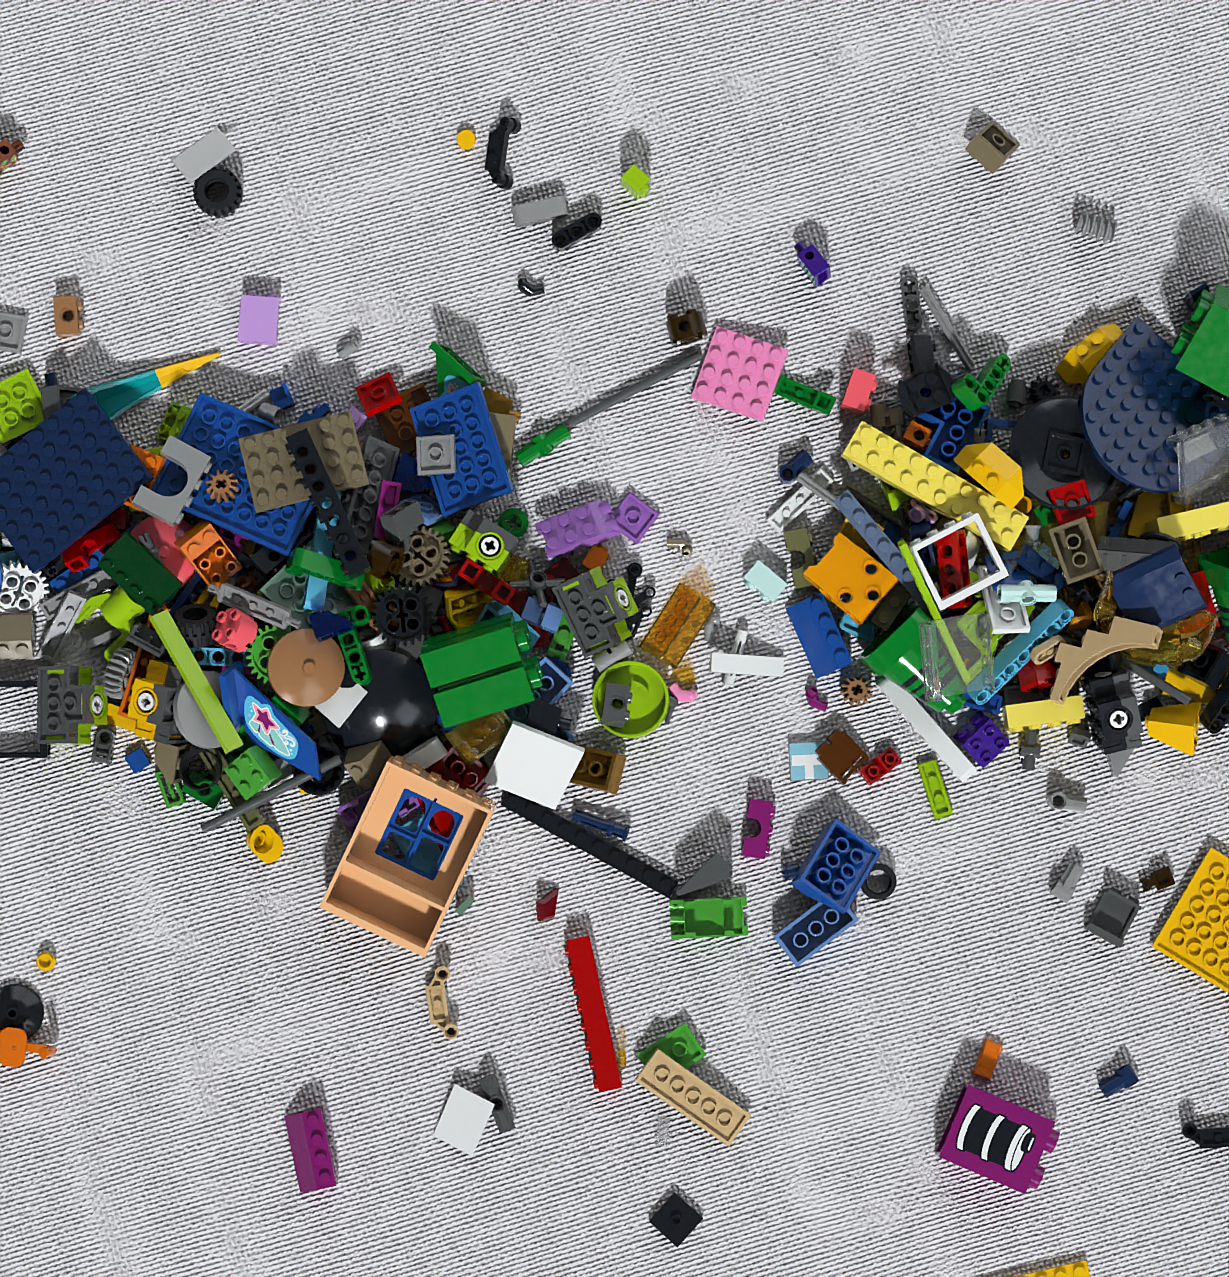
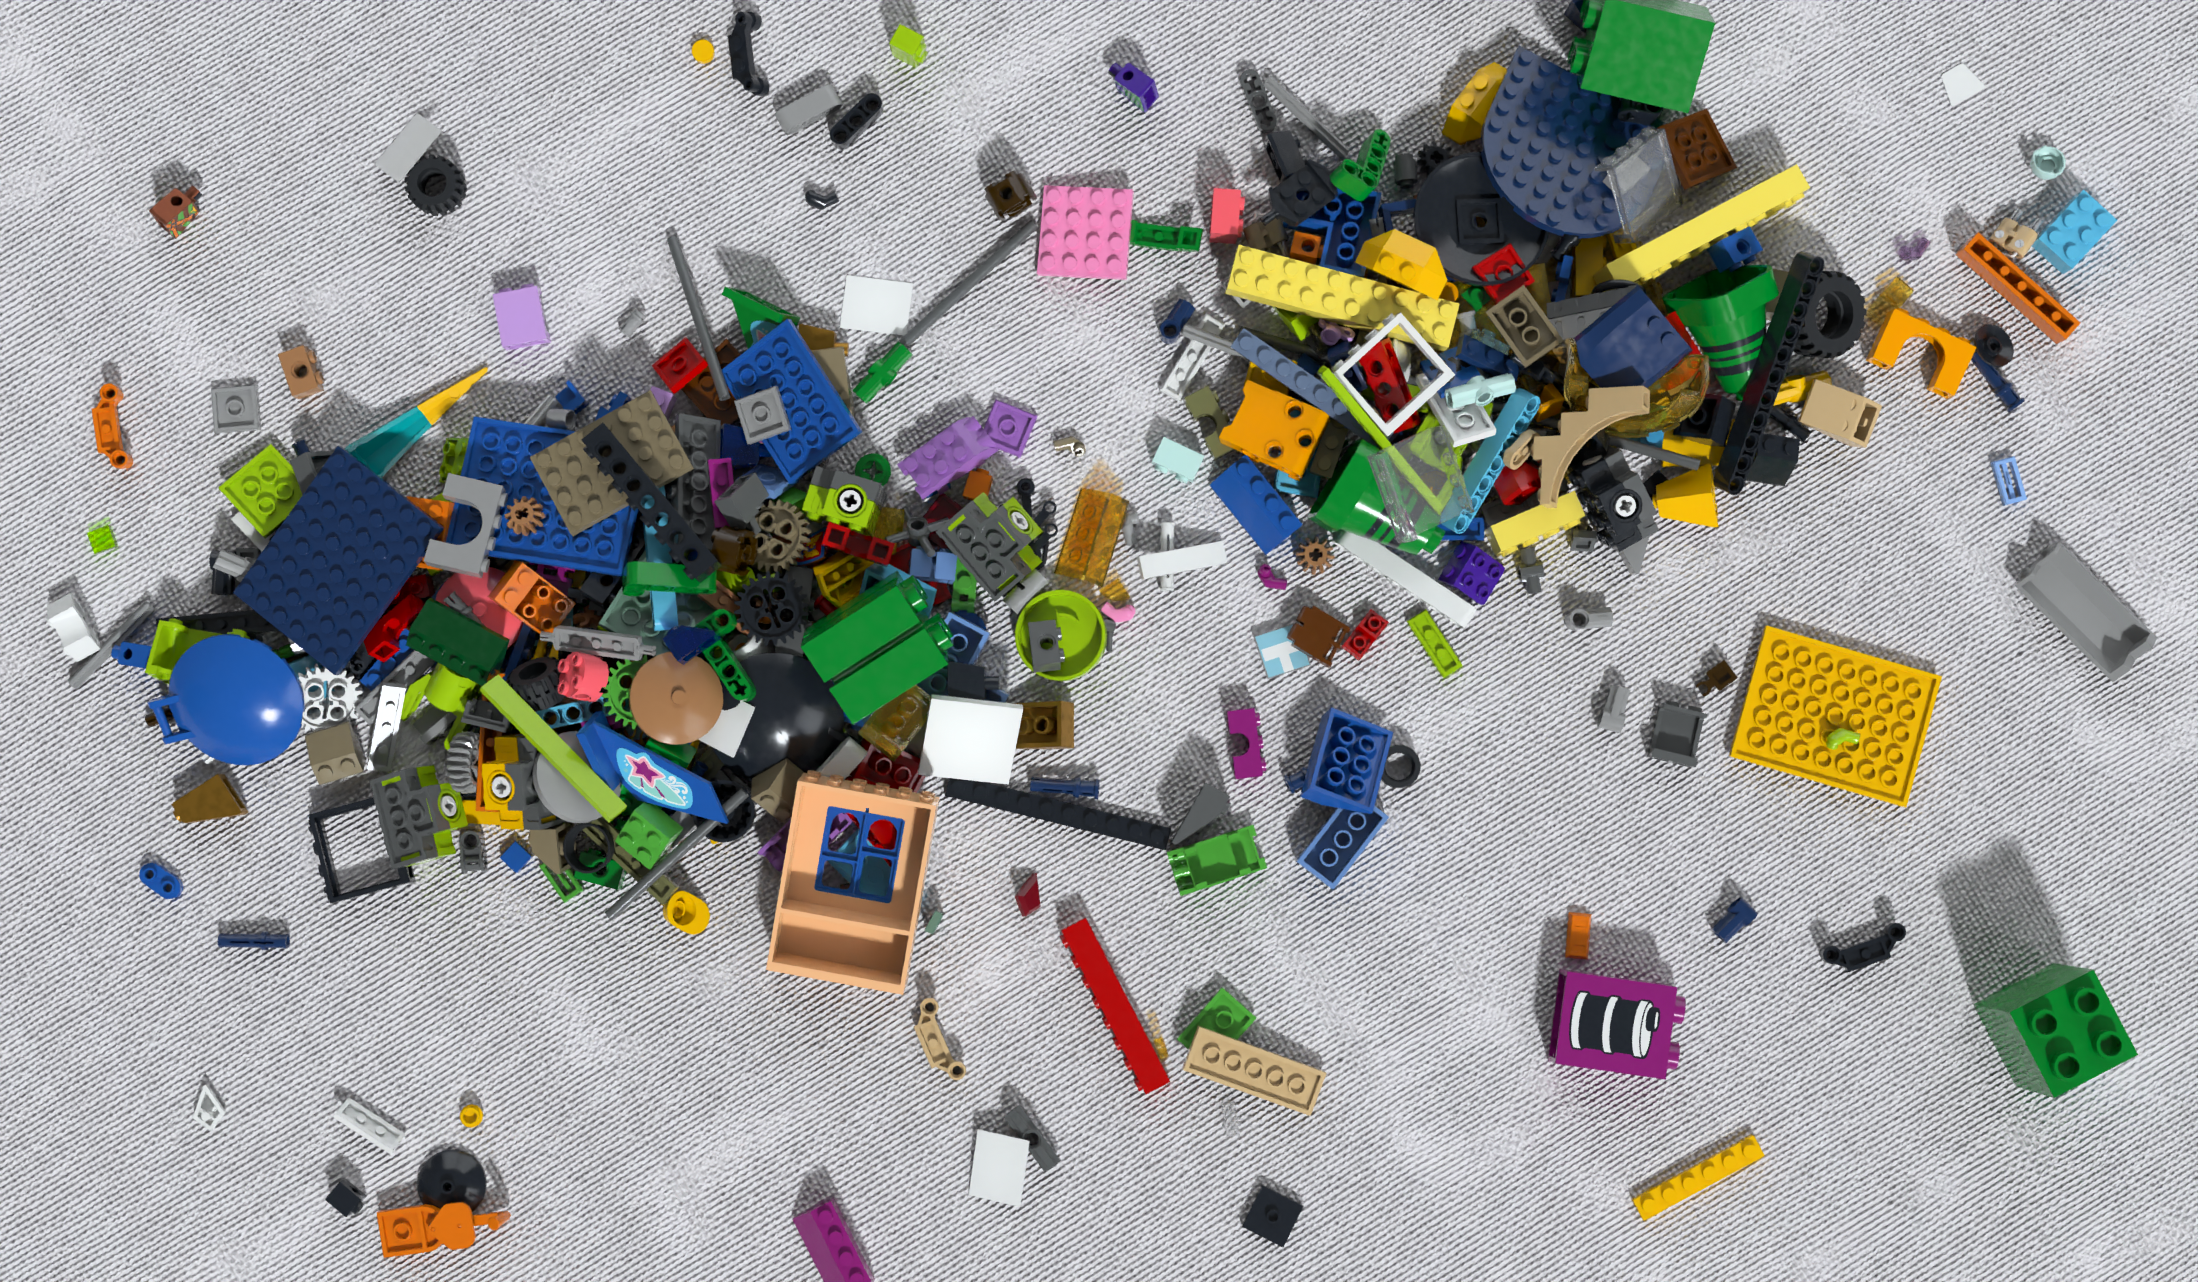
camera: 10 degrees left, 0 degrees up
(404, 360) = (698, 318): none -> dark grey piece
(552, 387) = (876, 305): none -> white sticker

